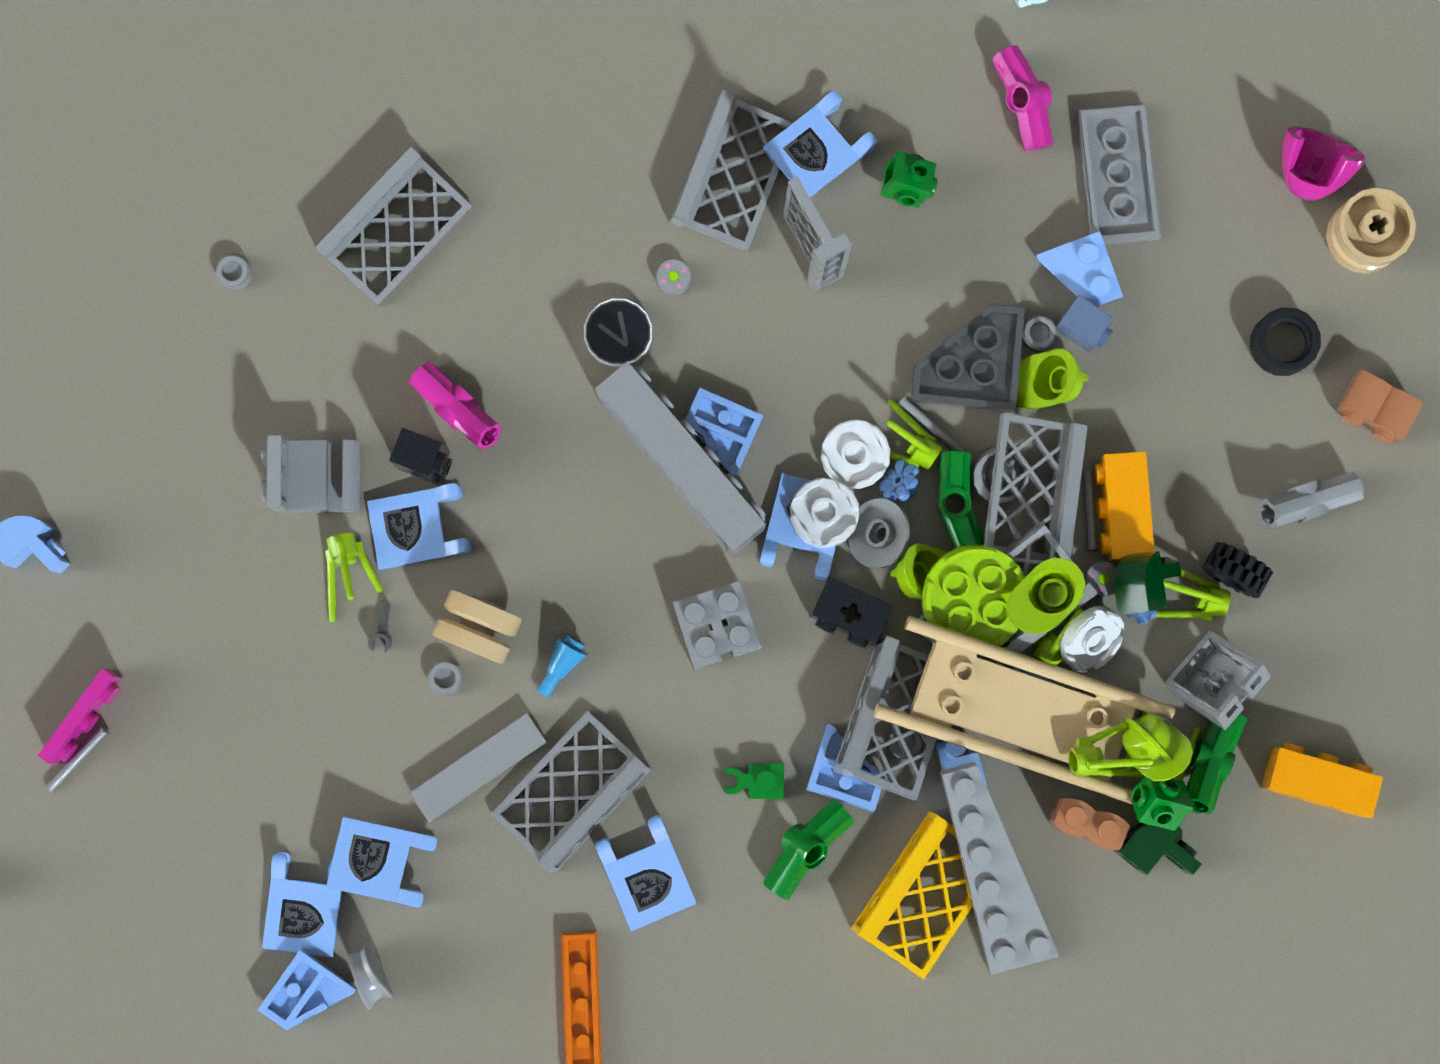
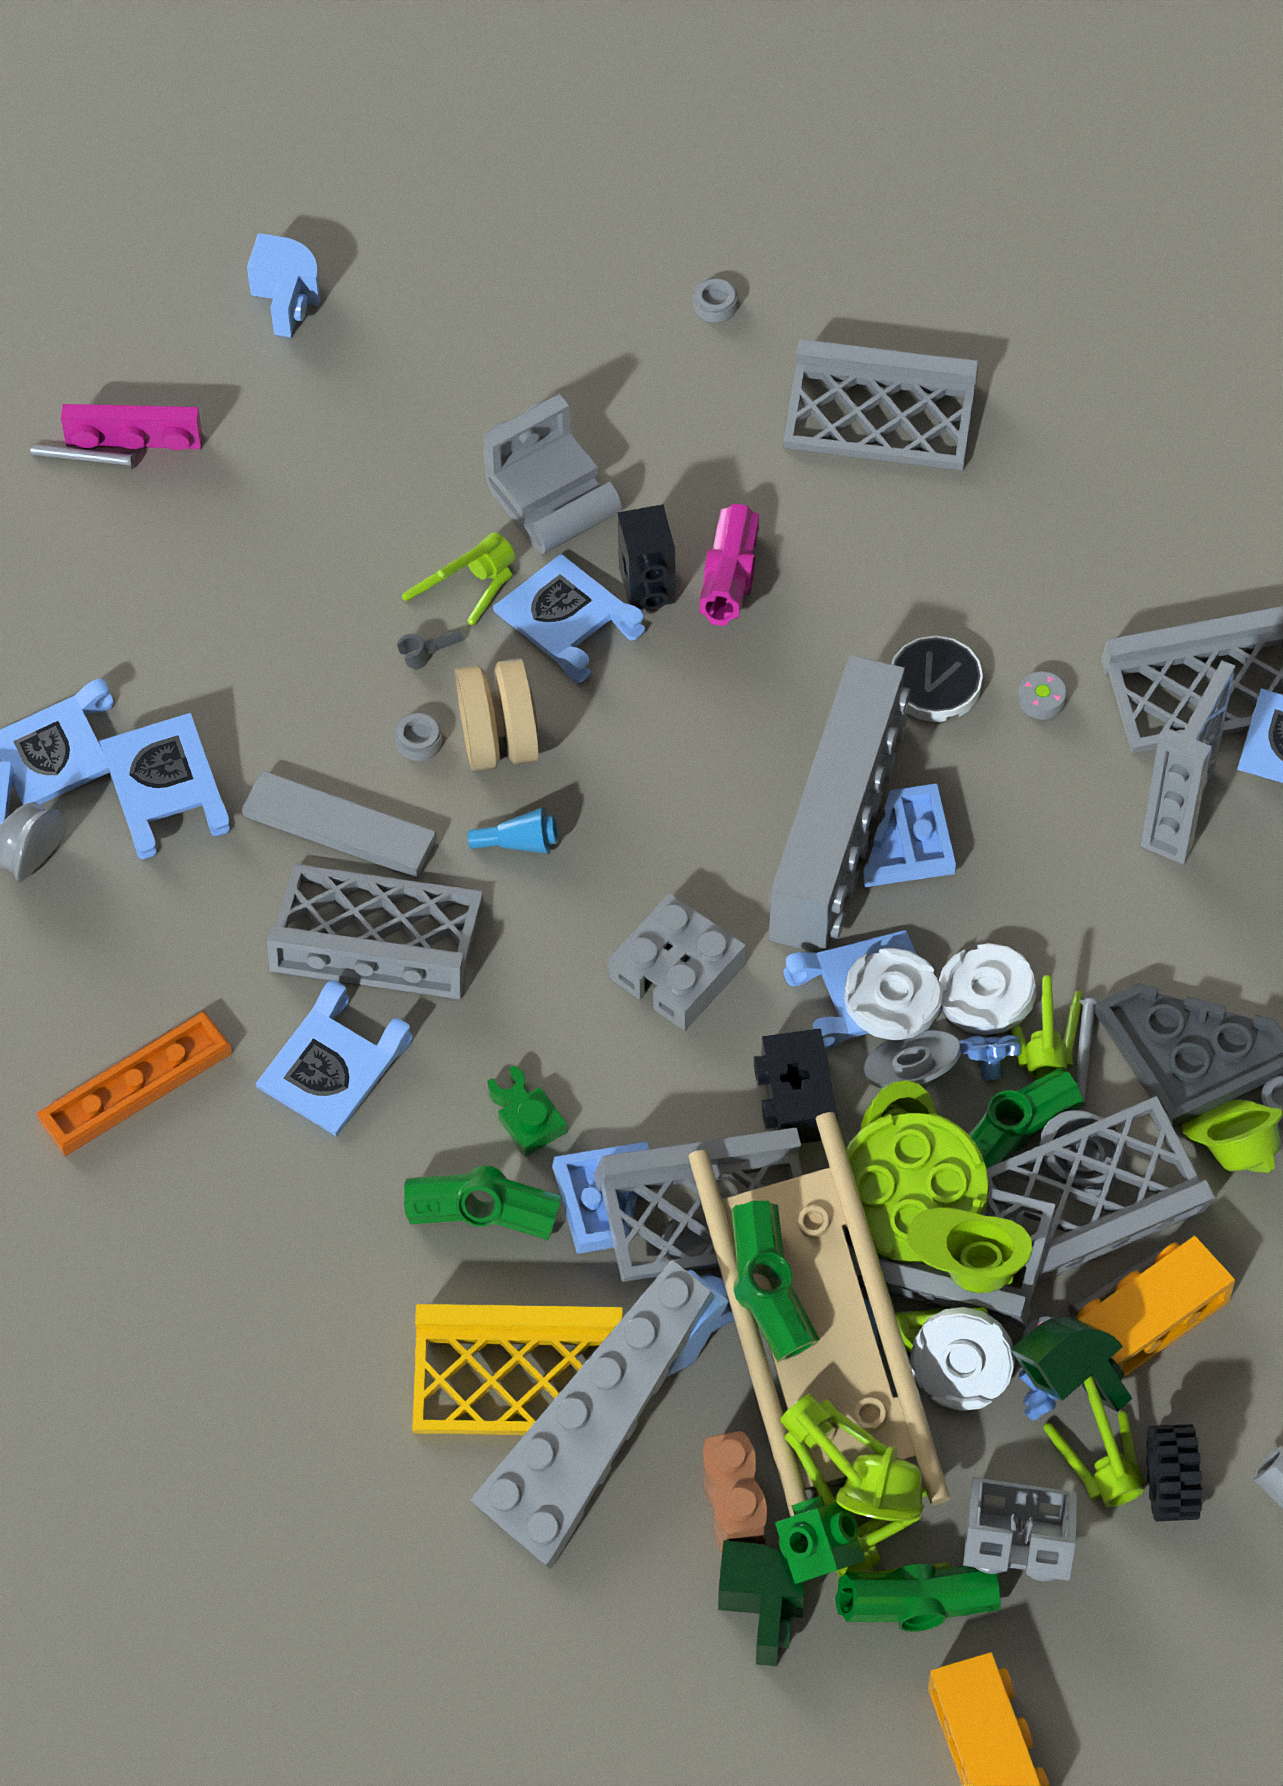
camera: 60 degrees right, 25 degrees down
(1008, 731) = (761, 1252): none -> green piece

